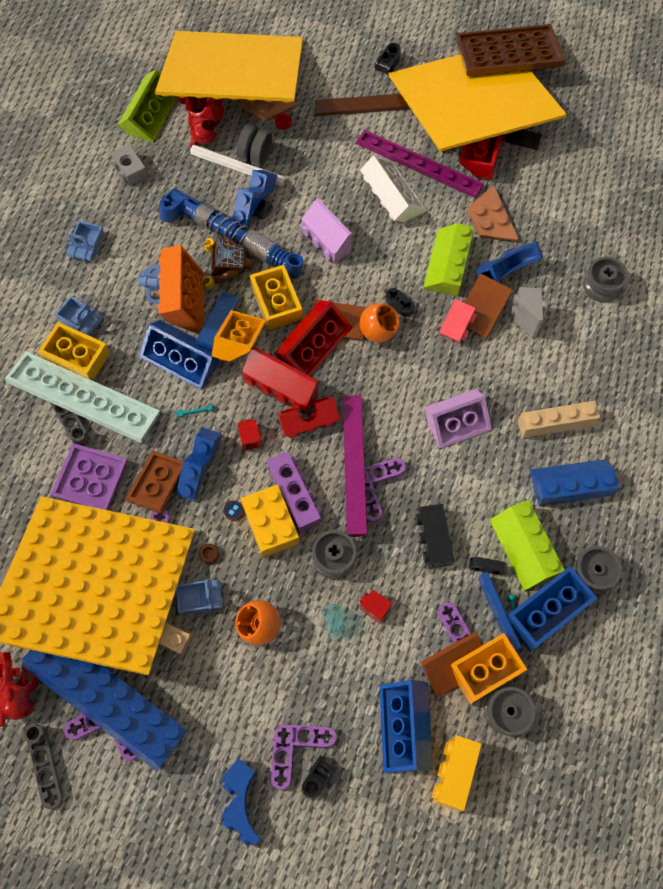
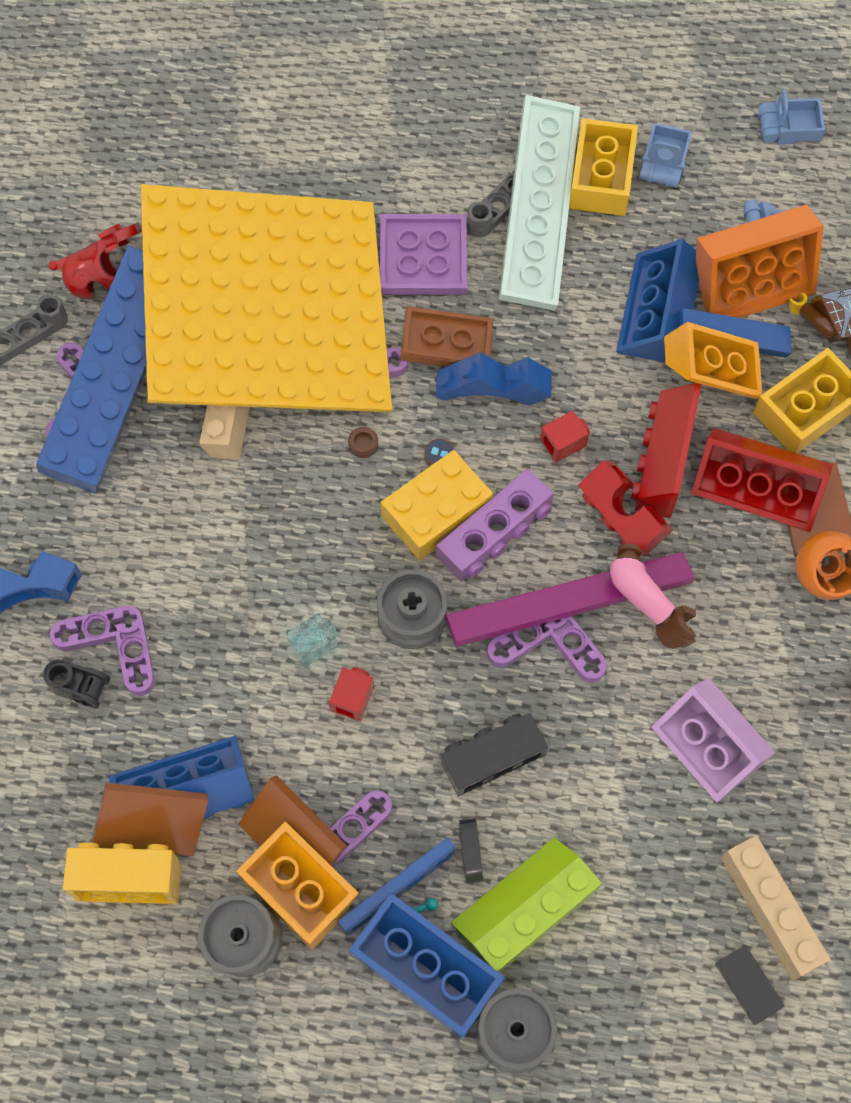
camera: 75 degrees right, 0 degrees up
(180, 413) = (566, 336): teal hinge -> none
(199, 597) = (293, 447): medium blue piece -> none
(258, 622) = (274, 532): orange wheel -> none
(361, 424) = (636, 585): none -> piece
(427, 748) = (150, 817): none -> dark orange tile
(574, 482) = (669, 962): blue slope -> none
(593, 447) = (749, 985): none -> black tile

